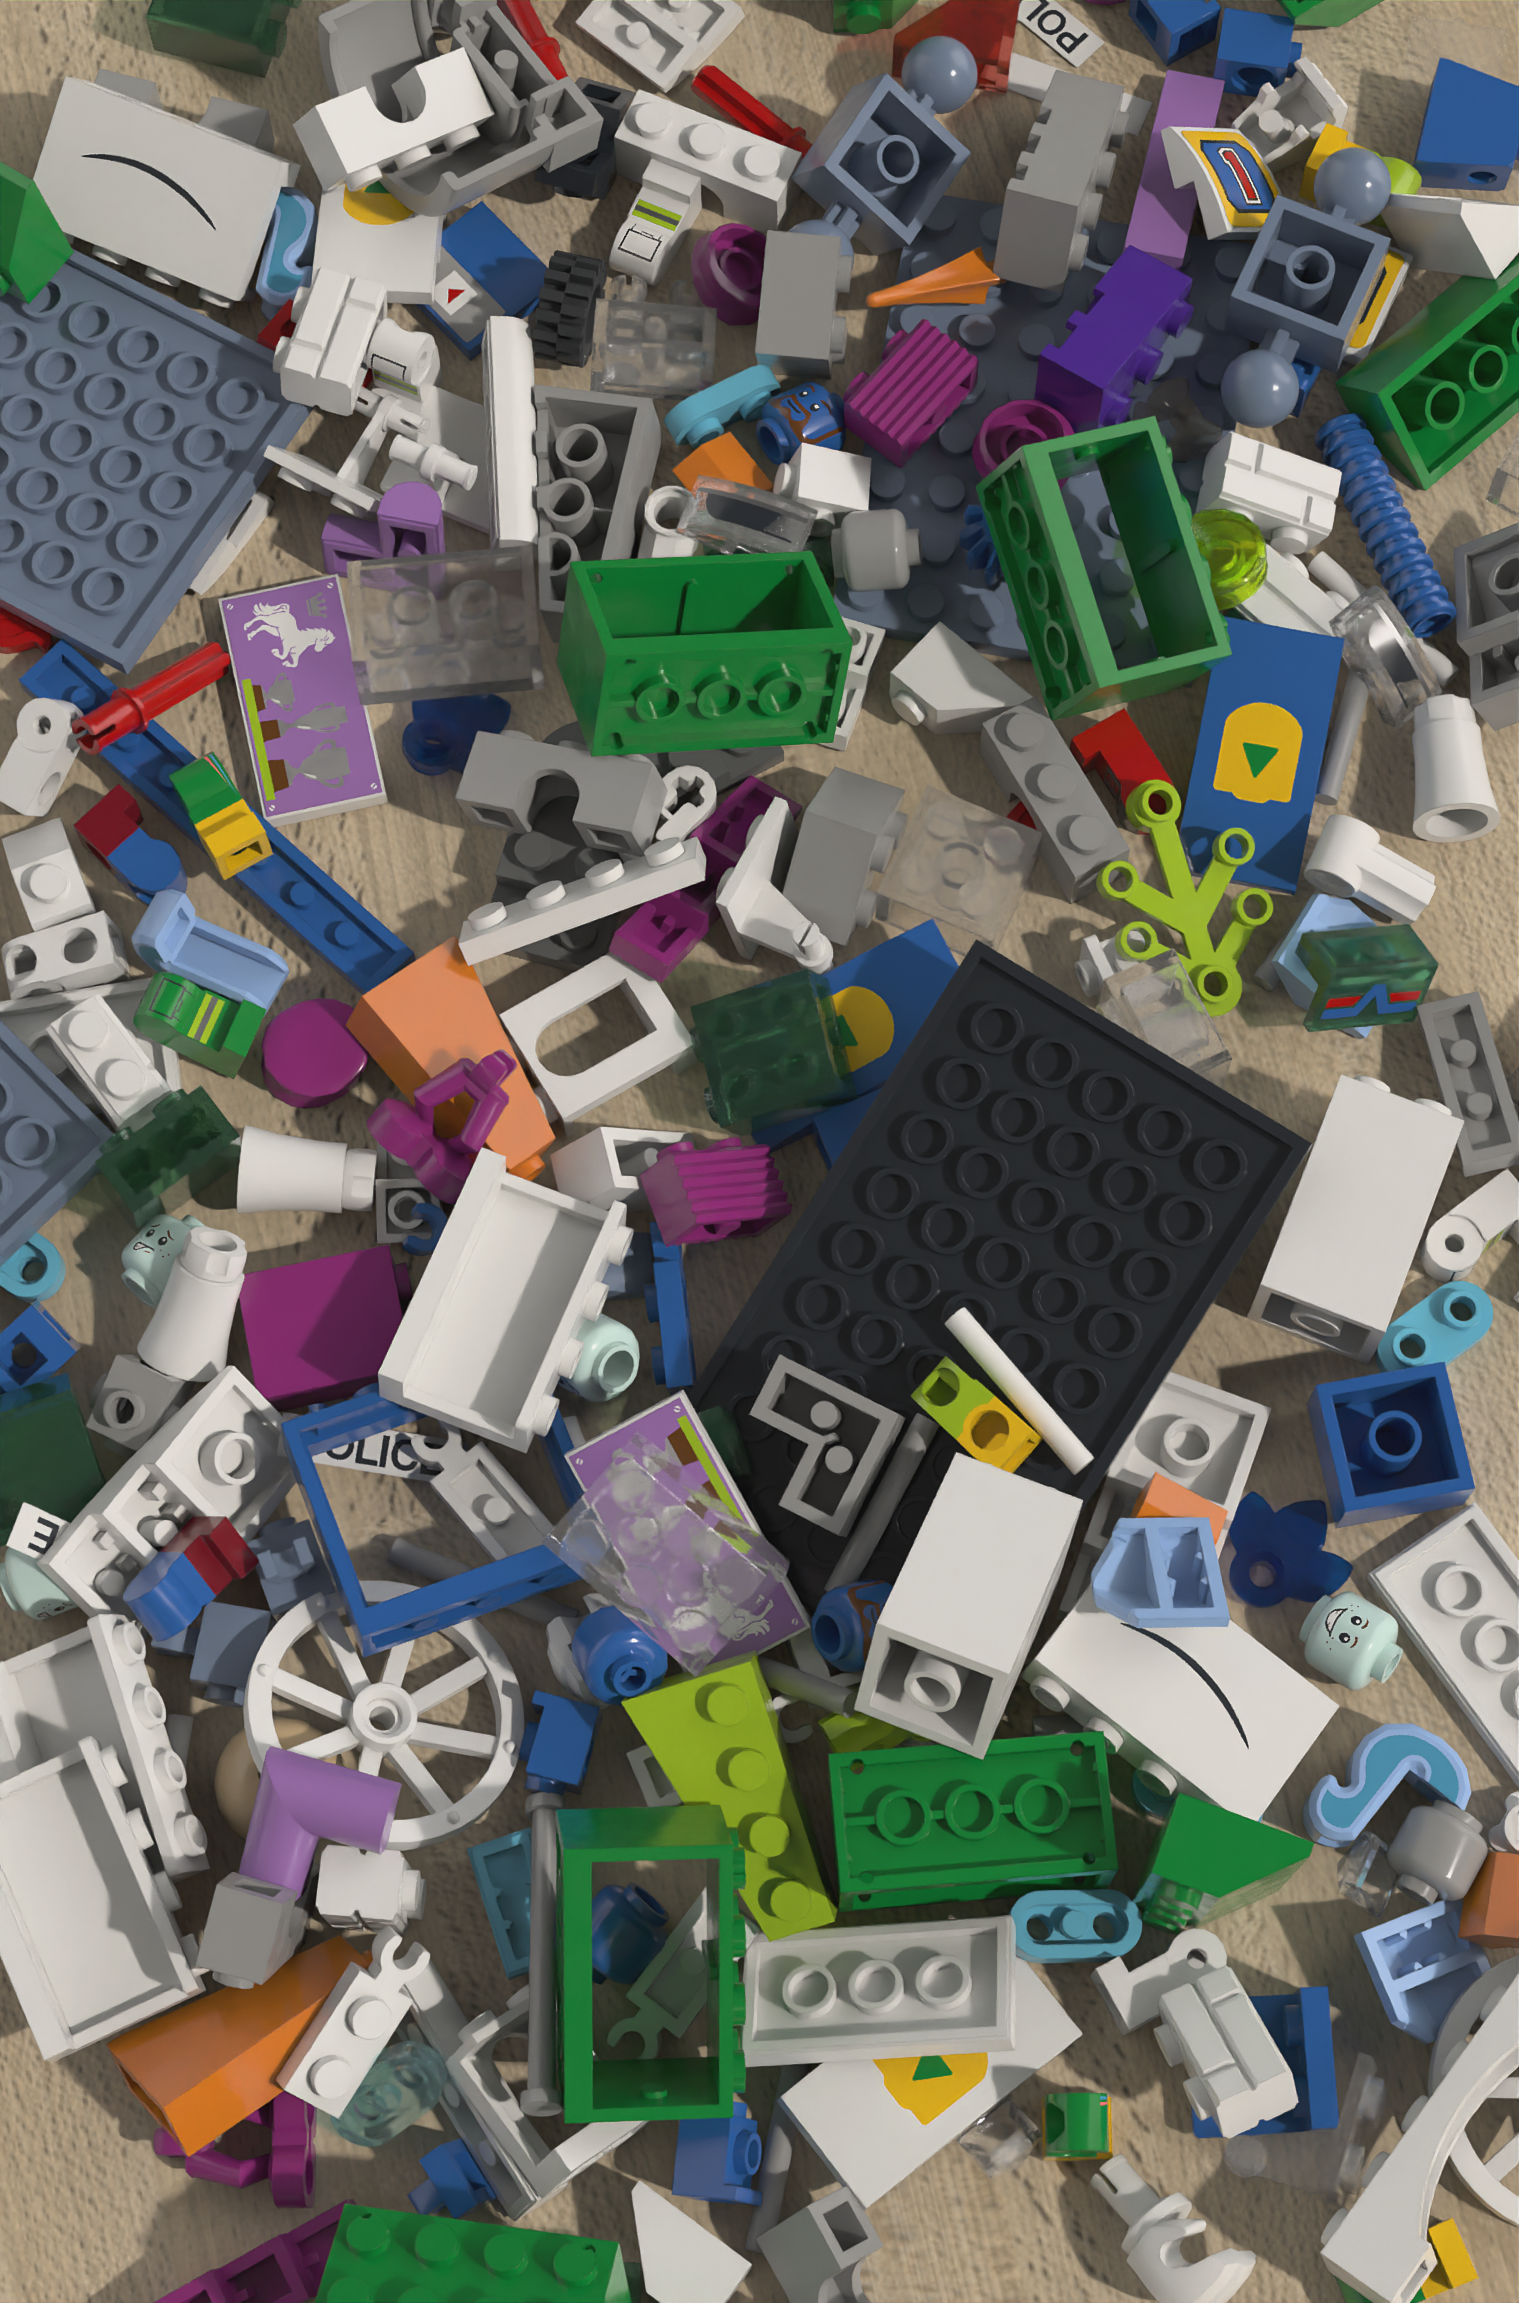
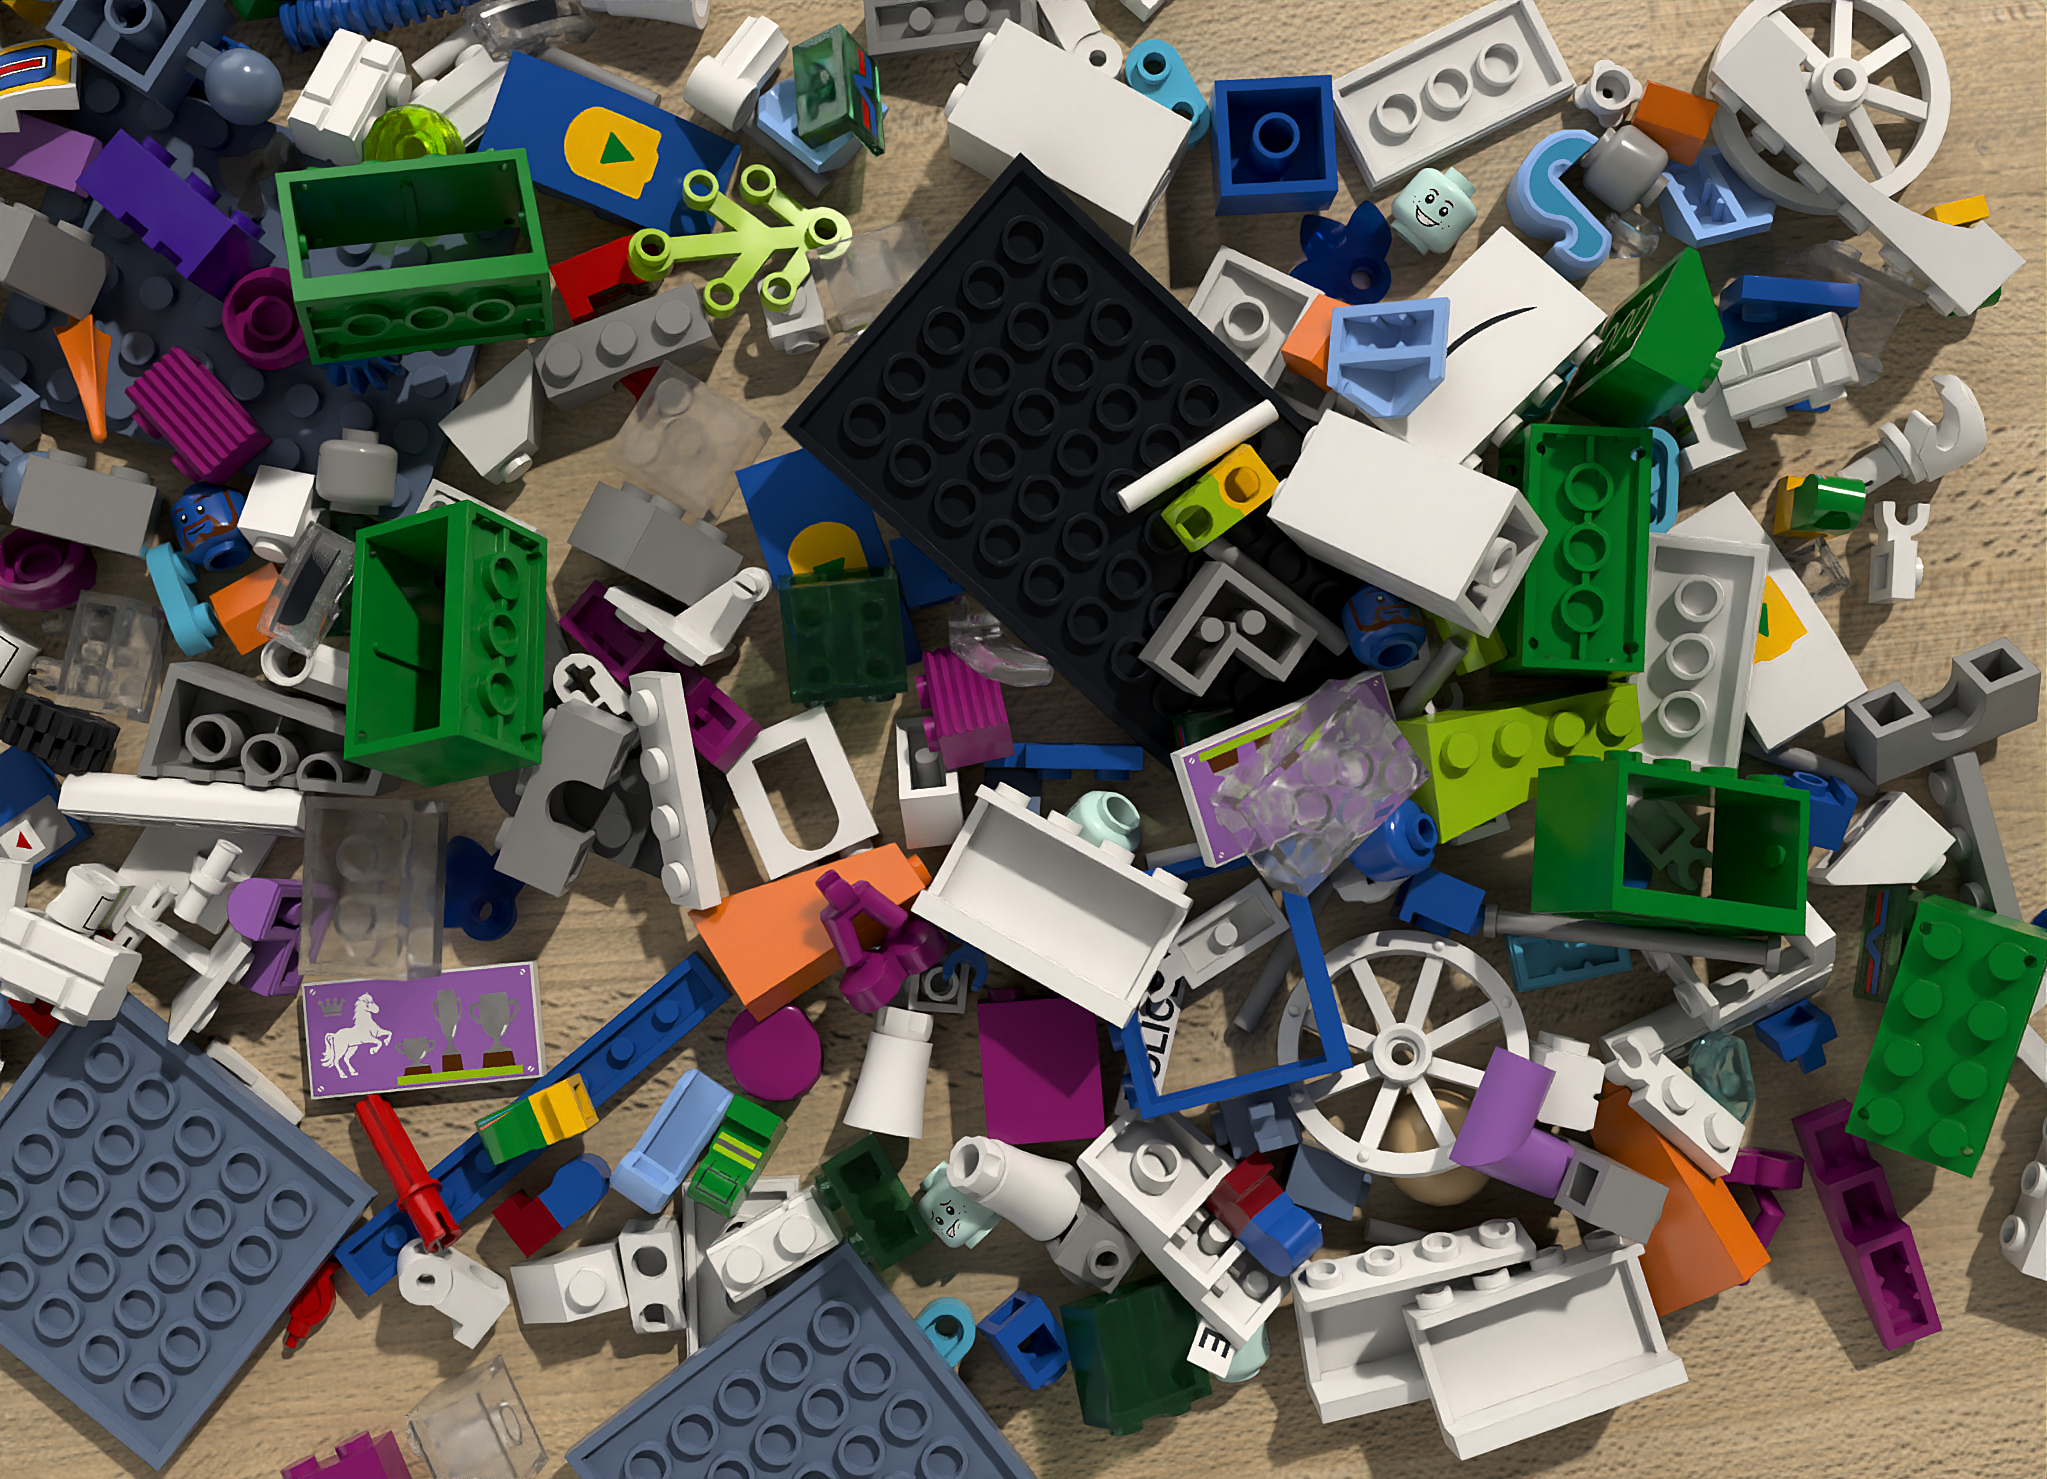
camera: 85 degrees left, 15 degrees up
(773, 1205) = (986, 649): none -> clear piece
(1017, 2239) = (1894, 561): none -> white plate

